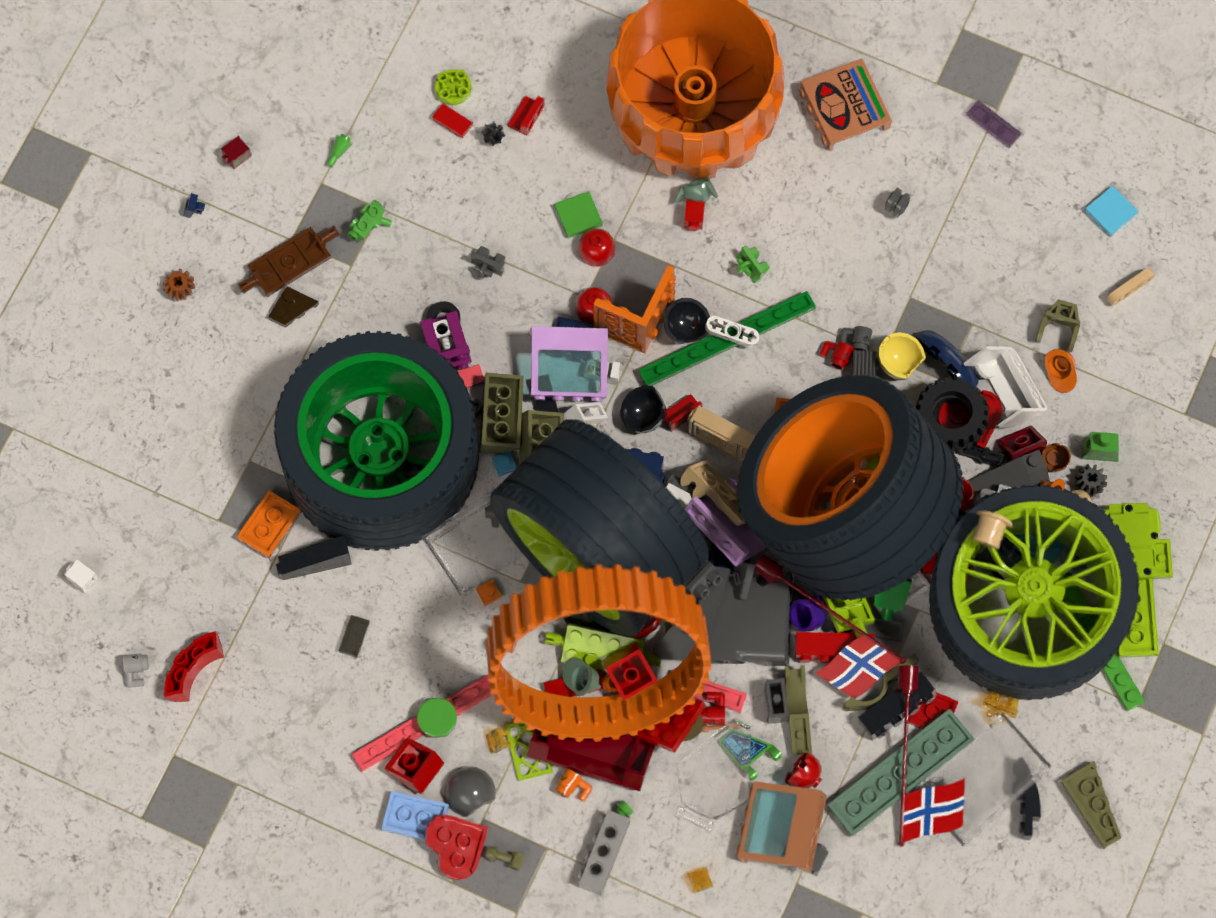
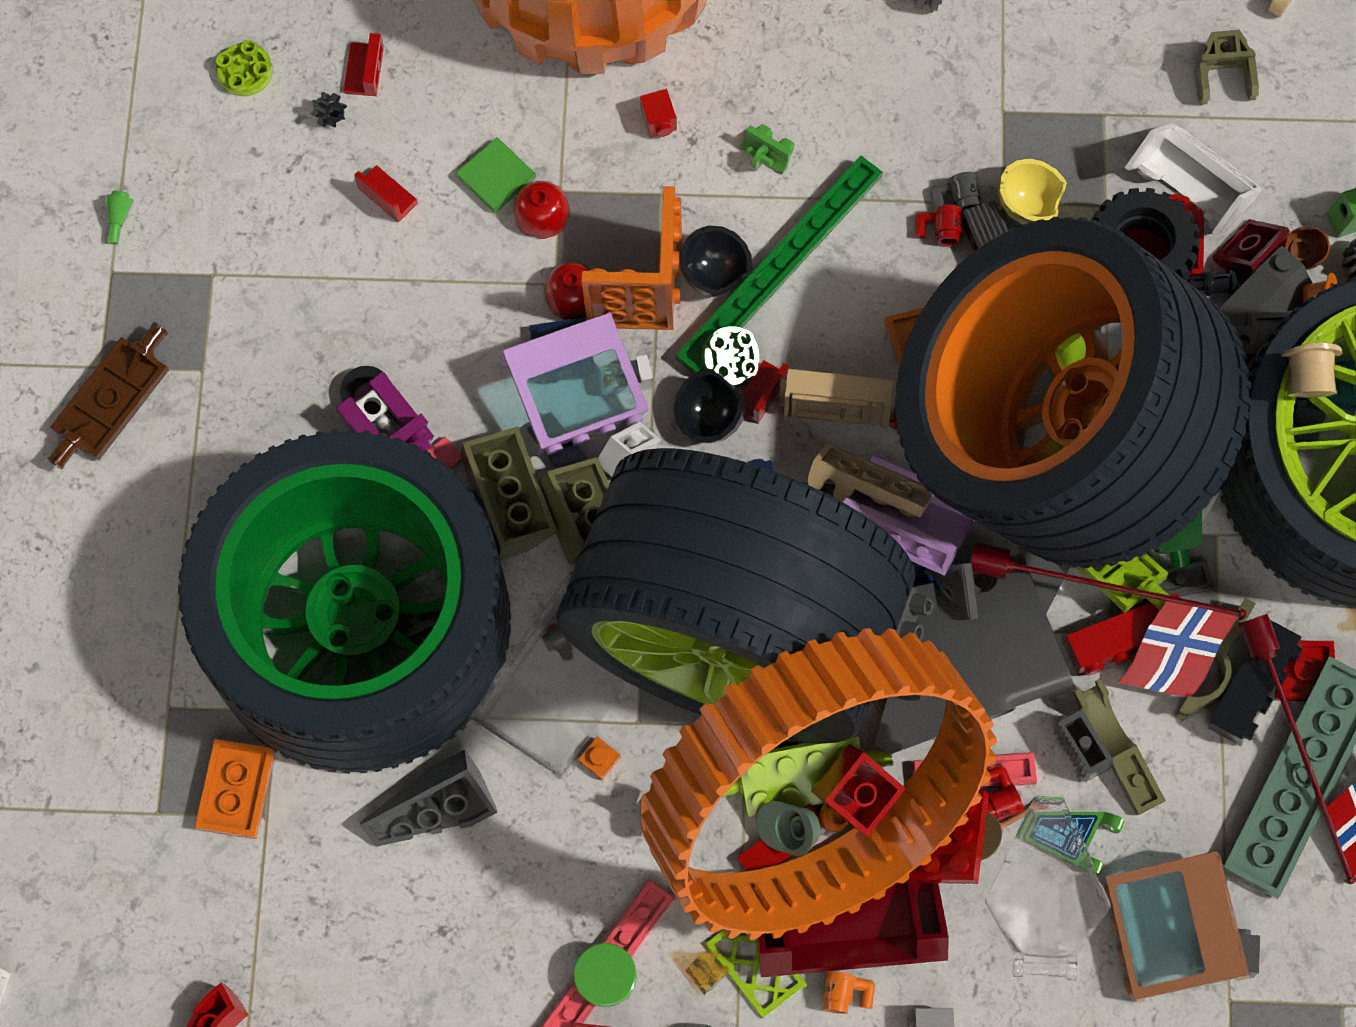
camera: 20 degrees left, 0 degrees up
(291, 306) = (138, 461): dark brown wing -> none
(314, 559) = (324, 812): black slope -> none
(354, 636) = (430, 903): clear smoke tile -> none
(370, 217) = (201, 292): bright green brick -> none
(384, 578) = (439, 799): none -> dark grey wedge
(452, 120) = (263, 114): red tile -> none
(485, 265) = (397, 294): dark grey hips -> none
(504, 463) = (541, 563): dark azure plate -> none
(507, 199) = (386, 193): none -> red panel
(623, 809) = (935, 996): bright green plate -> none
(672, 383) = (731, 354): none -> tile
(696, 191) = (648, 78): sand green piece -> none
(743, 341) = (805, 256): white beam -> none
(805, 773) = (1171, 833): red cylinder -> none
(807, 615) = (1071, 604): dark purple piece -> none
(943, 350) = (1083, 163): dark blue brick -> none
(1061, 370) = (1256, 128): orange piece -> none

